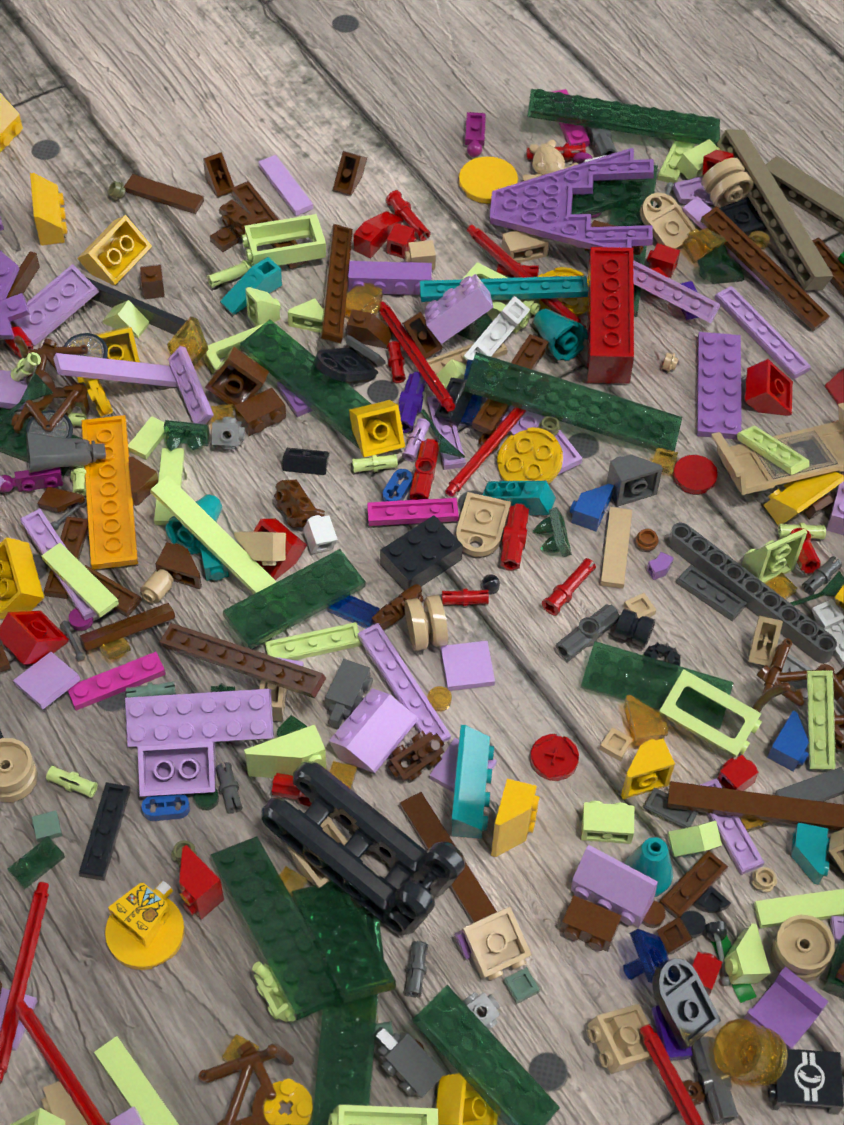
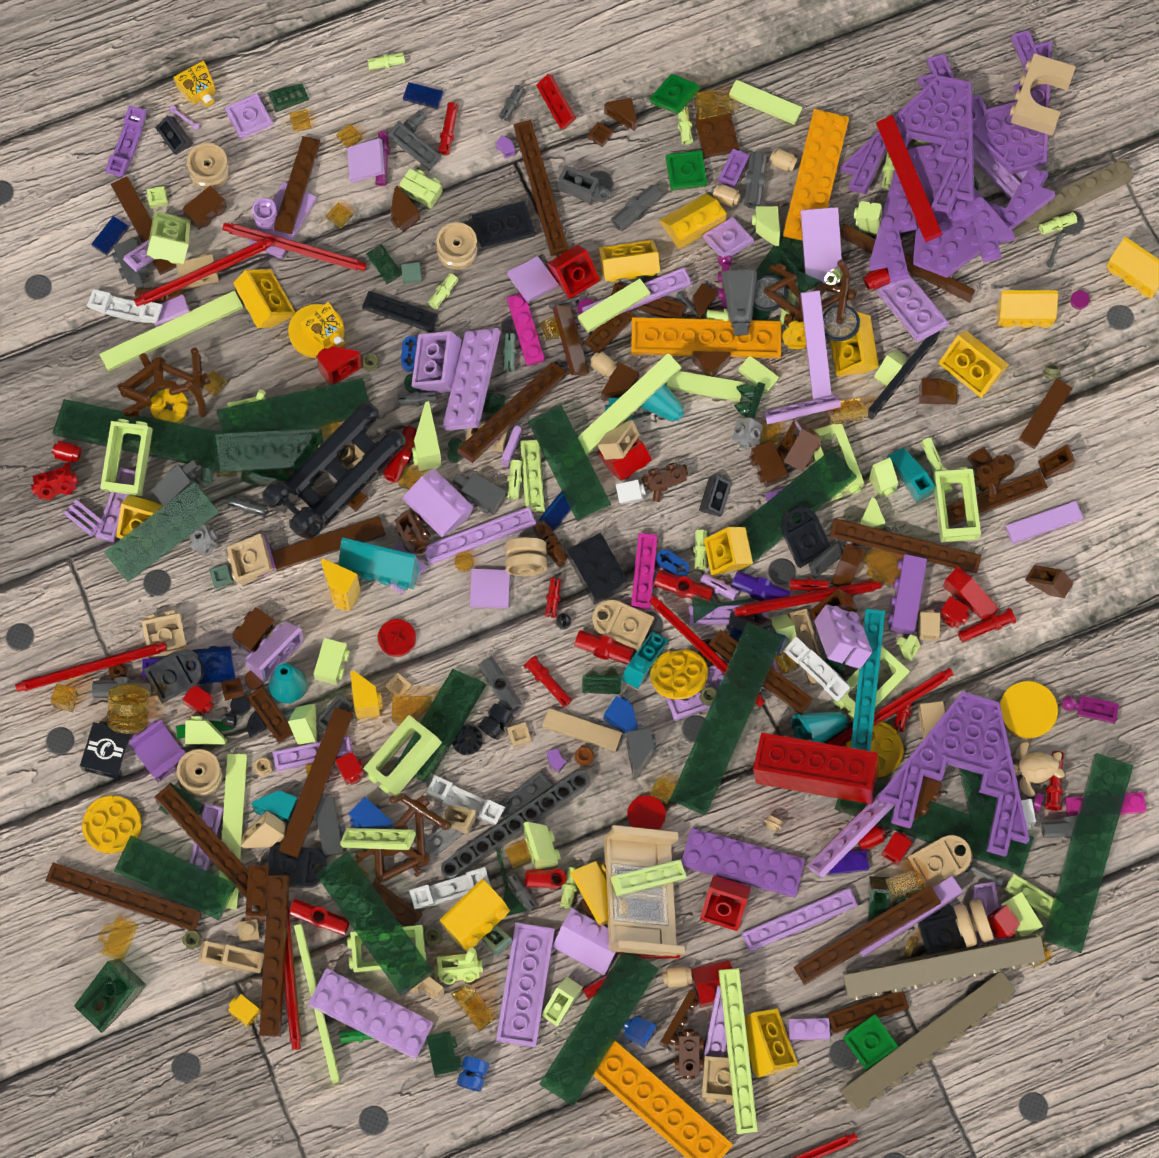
camera: 100 degrees right, 15 degrees up
(25, 180) = (1079, 300): none -> magenta tile
(104, 1007) = (263, 297): none -> yellow slope
(322, 658) = (514, 479): none -> yellowish green pin
(447, 270) = (908, 647): none -> yellowish green tile
(738, 642) = (451, 795): none -> white slope

